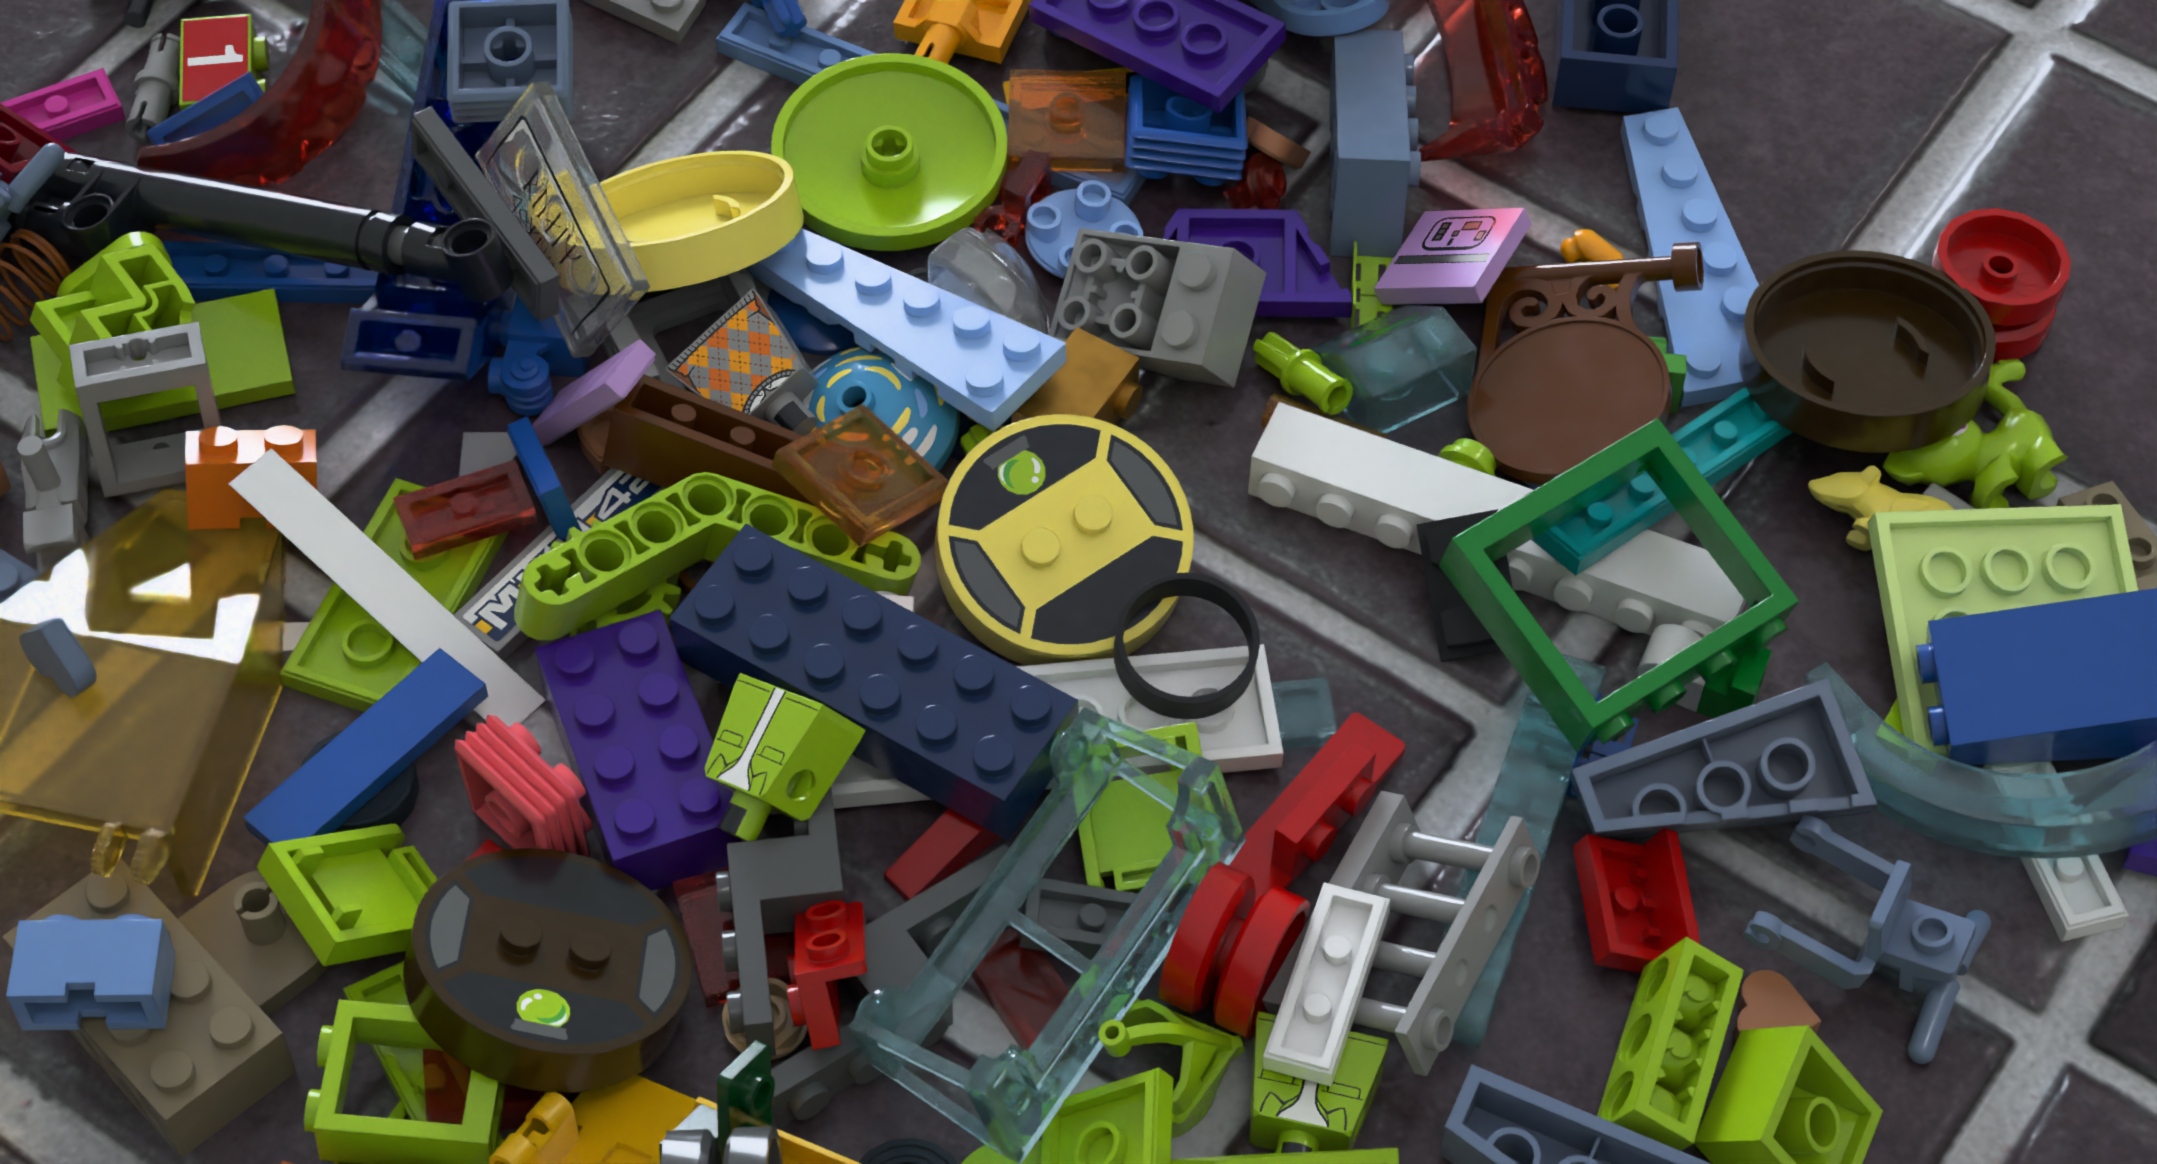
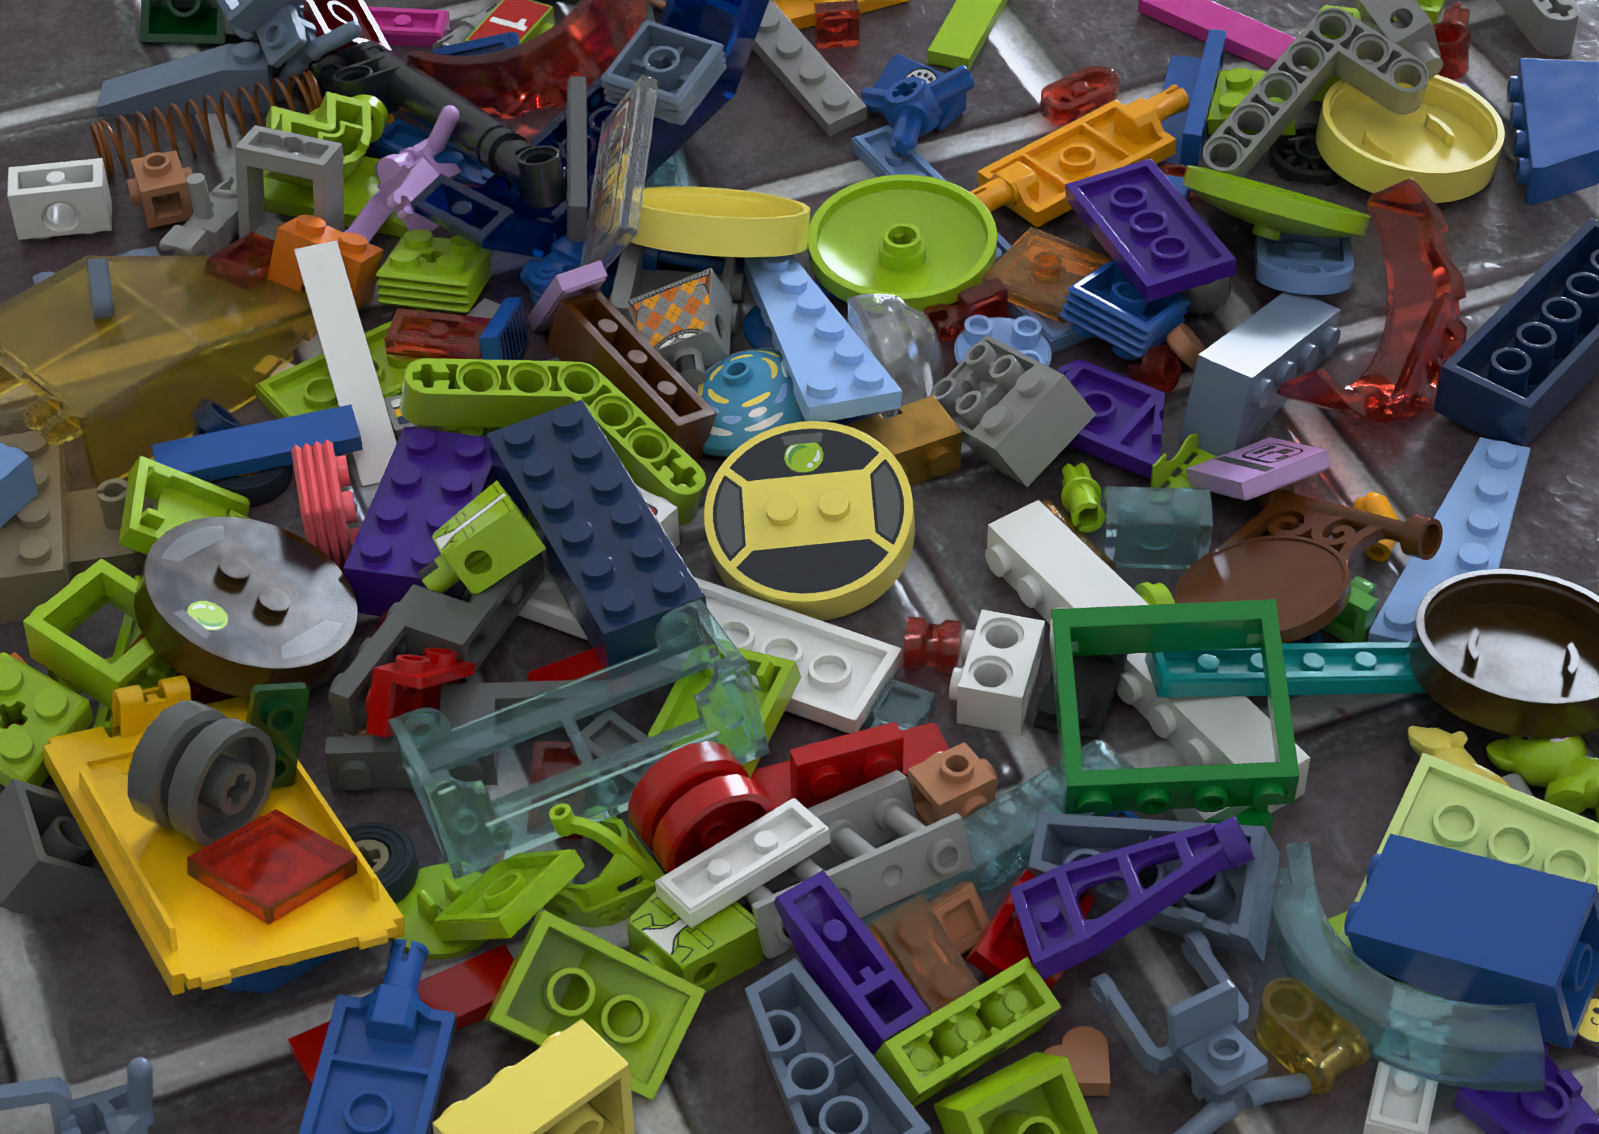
camera: 35 degrees right, 10 degrees down
(153, 518) = (242, 262): none -> clear red tile
(276, 744) = (212, 418): none -> dark blue tile
(278, 328) = (405, 177): none -> lavender piece
(384, 431) = (434, 273): none -> lime brick
(860, 475) = (694, 412): clear orange tile -> none
(1196, 586) = (828, 573): black tyre -> none
(1291, 621) = (932, 644): none -> clear red wheel
(1386, 616) = (998, 671): none -> white brick
(1446, 781) = (951, 784): none -> nougat brick
(1527, 1039) = (848, 962): none -> dark purple slope
(1552, 927) = (961, 915): none -> nougat tile
(1559, 1001) = (924, 953): none -> clear orange plate
(1684, 886) = (1050, 904): none -> dark purple plate
(1960, 868) = (1311, 1038): none -> clear yellow piece

